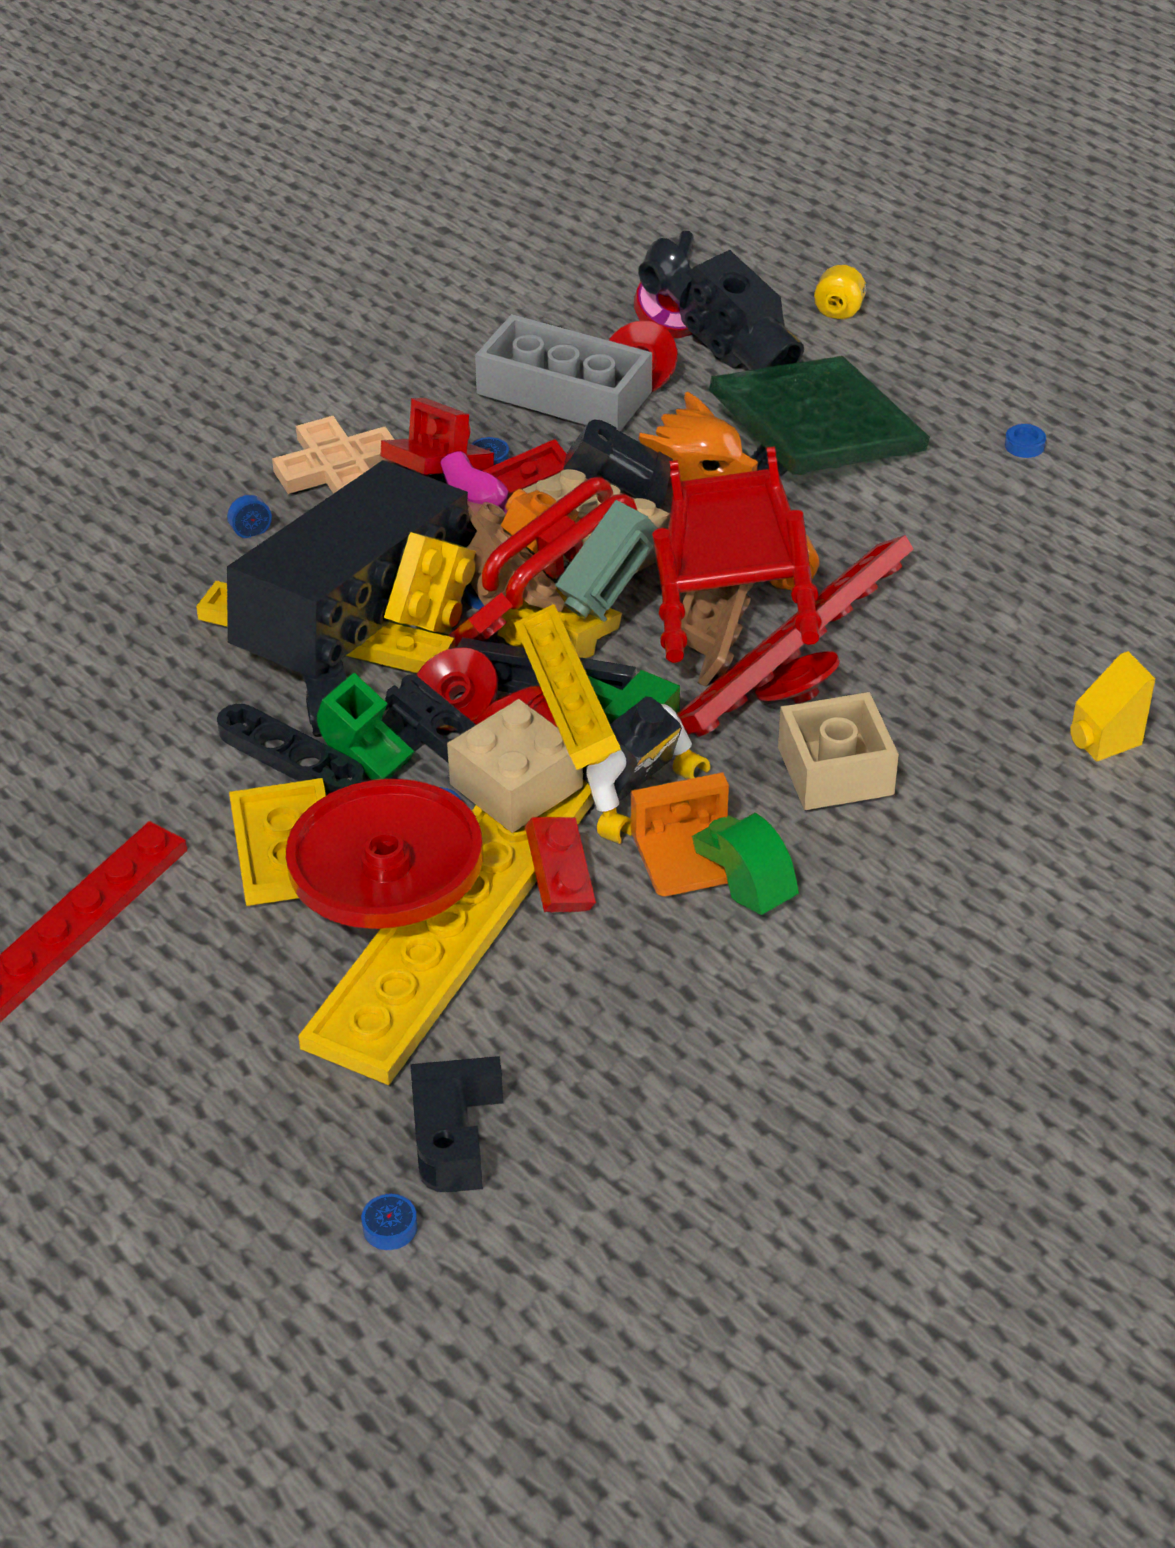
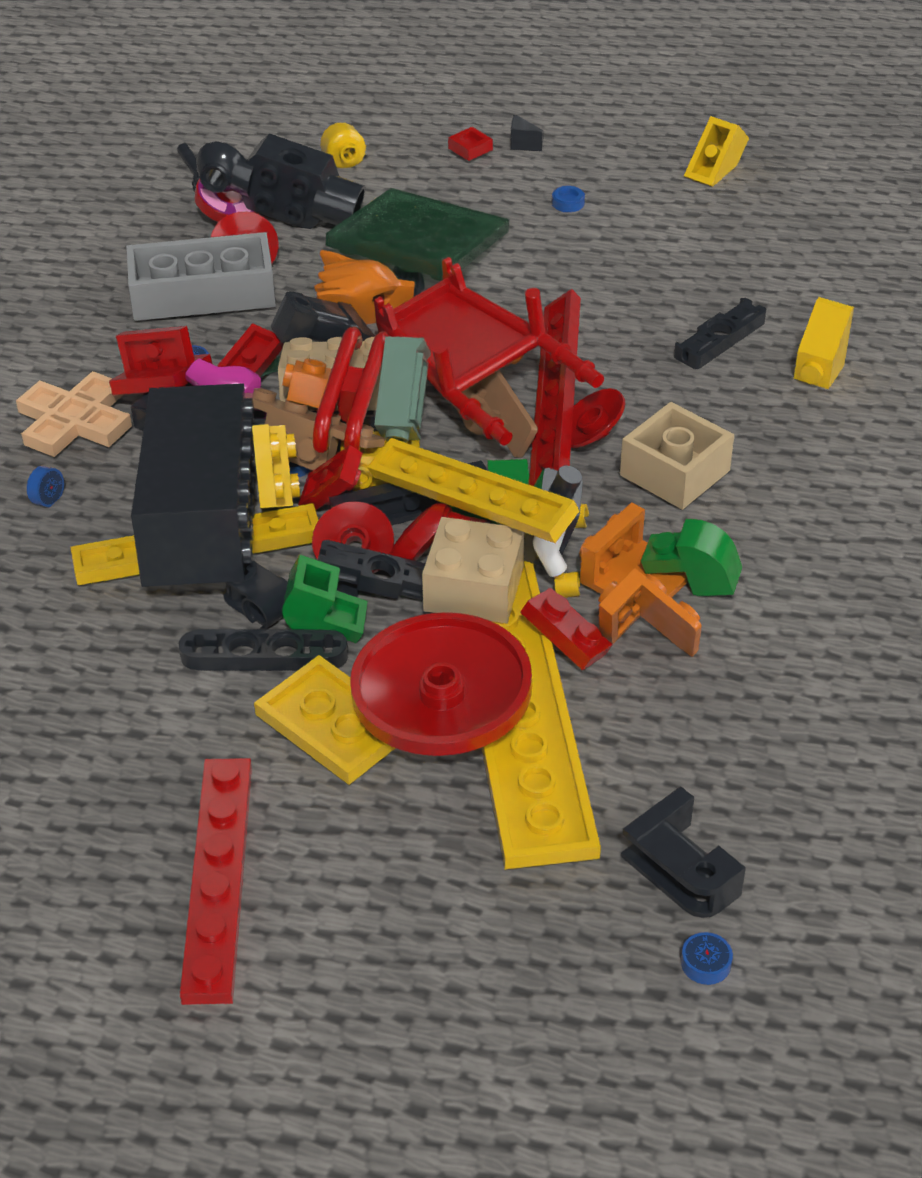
camera: 35 degrees left, 0 degrees up
(621, 869) = (647, 597): none -> orange bracket
(977, 339) = (470, 143): none -> red plate
(1048, 352) = (525, 135): none -> black slope
(1062, 650) = (707, 345): none -> black piece

